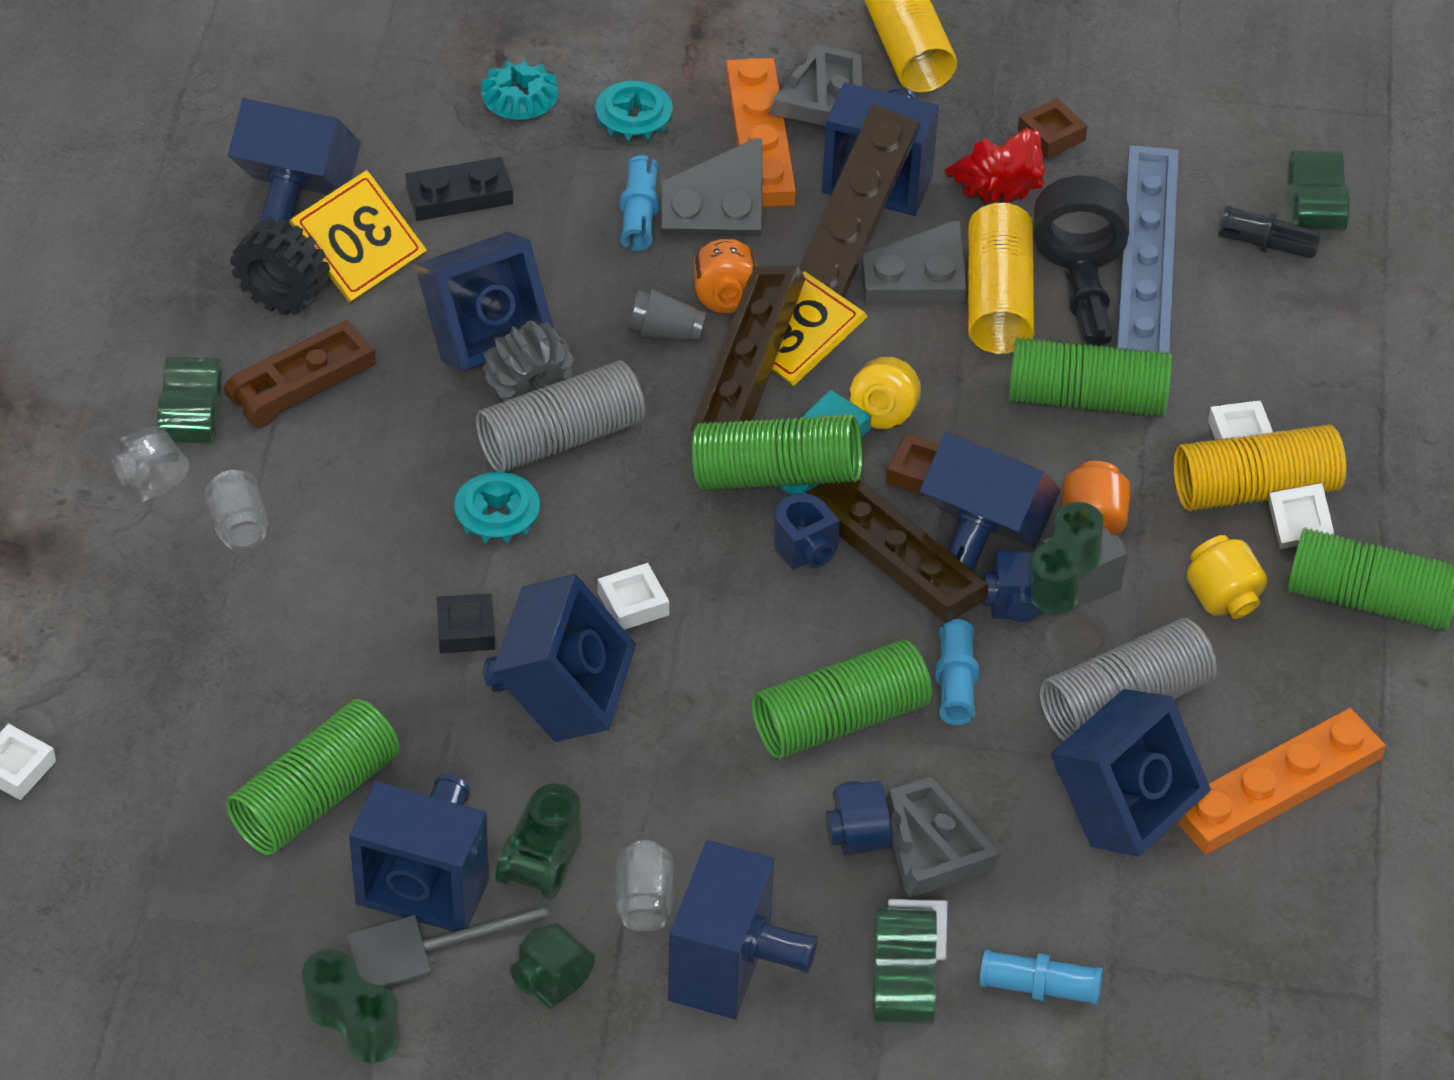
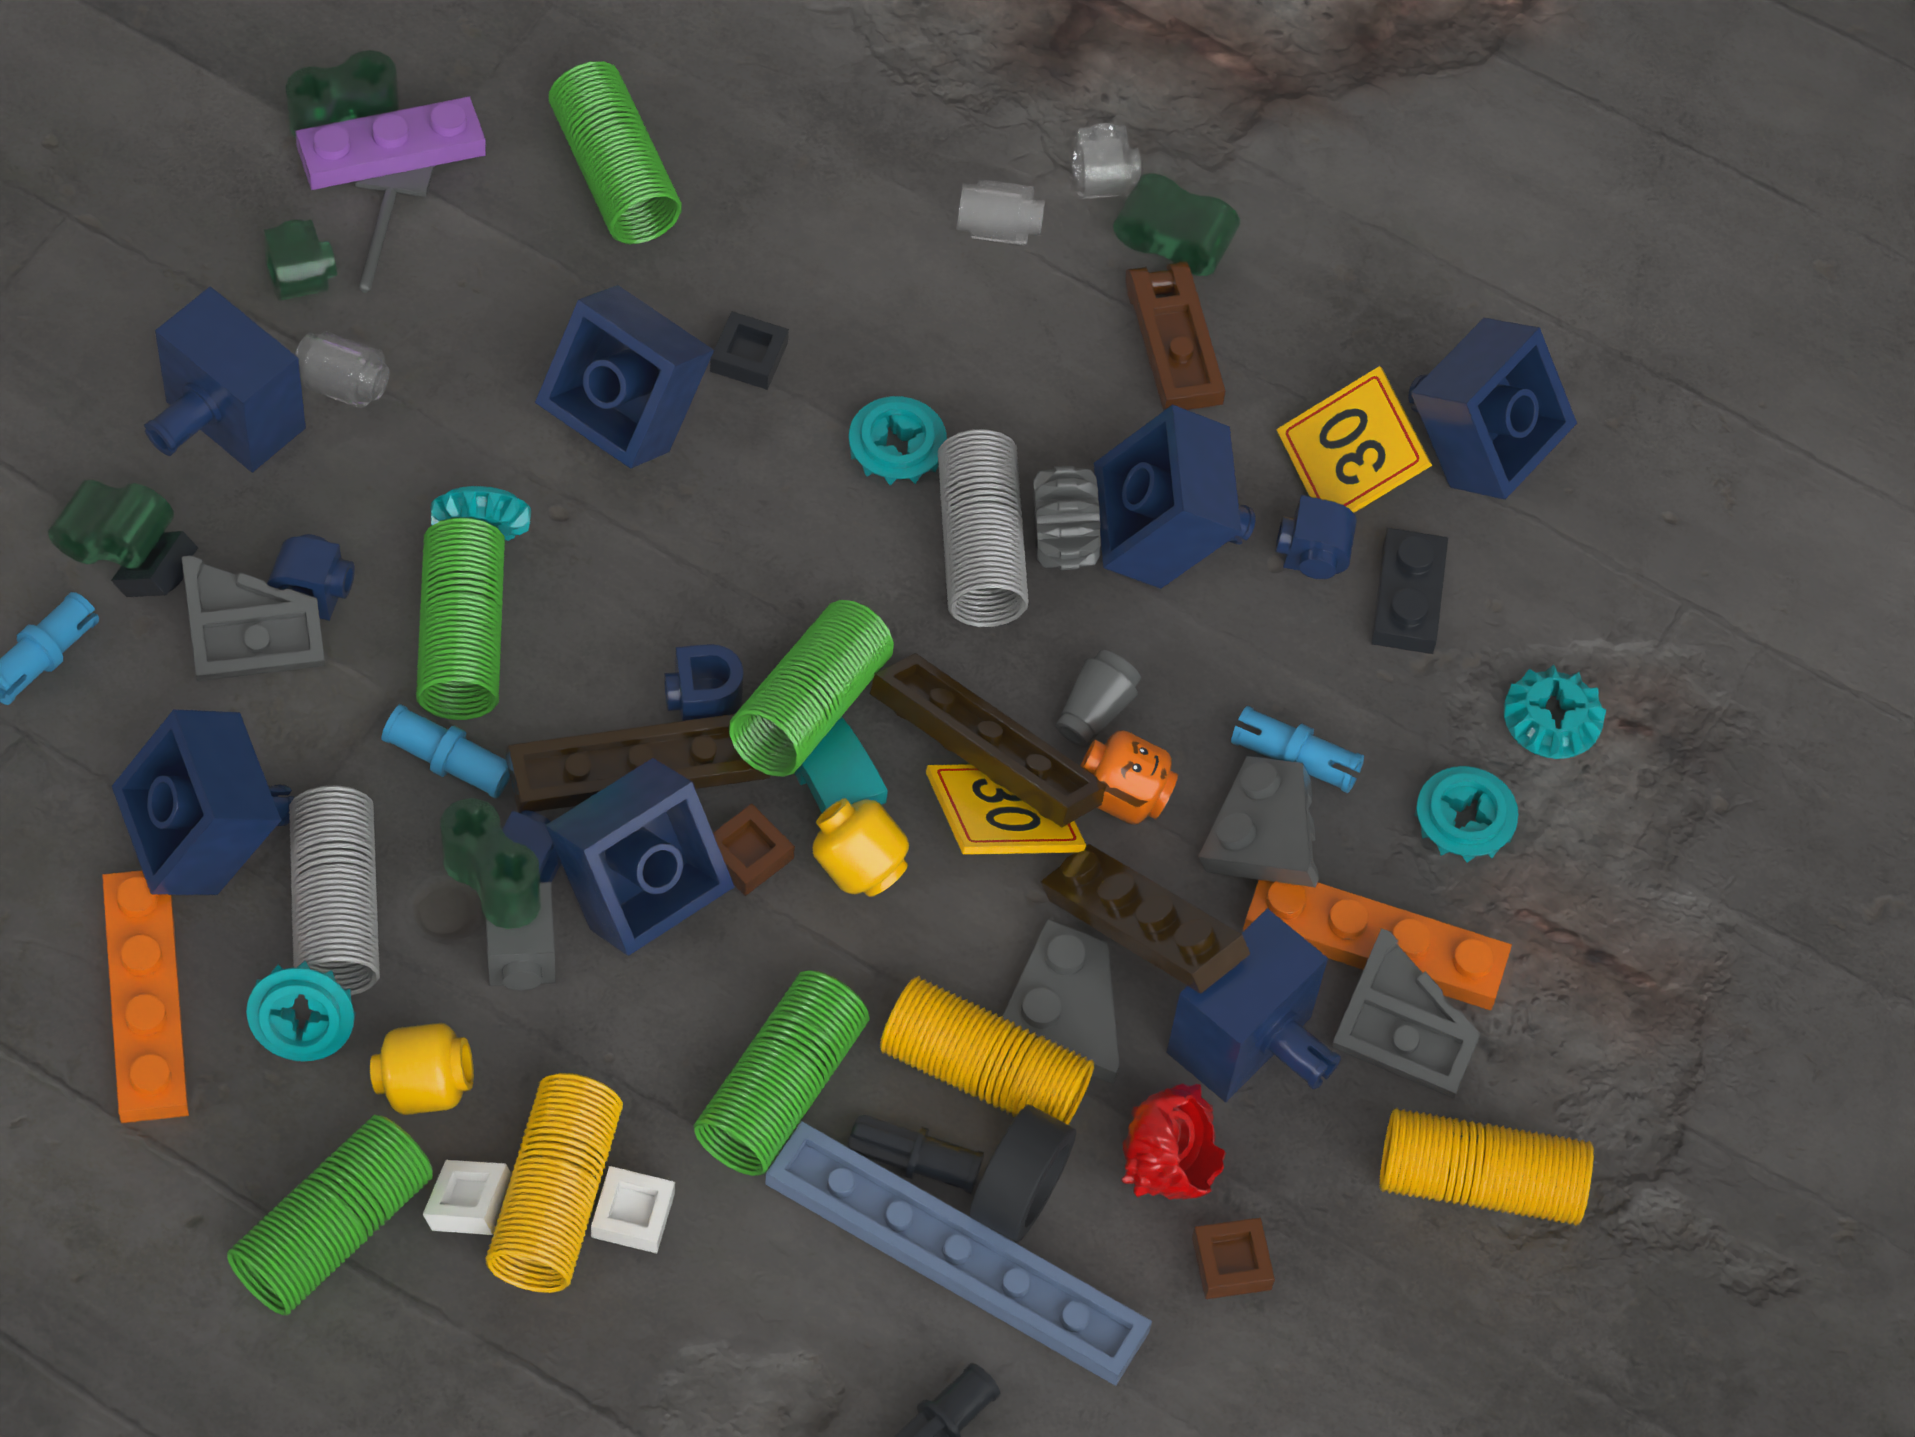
camera: 110 degrees right, 10 degrees up
(280, 266) = (1321, 345): black tyre -> none
(380, 953) = (390, 143): none -> medium lavender plate
(421, 853) = (458, 184): dark blue brick -> none
(450, 230) = (1317, 538): none -> dark blue plate
(542, 850) = (436, 310): clear green piece -> none
(633, 596) = (706, 505): white plate -> none
(742, 717) = (486, 504): none -> teal gear
(1103, 488) = (600, 991): orange head -> none
(1239, 657) = (276, 1023): none -> teal gear

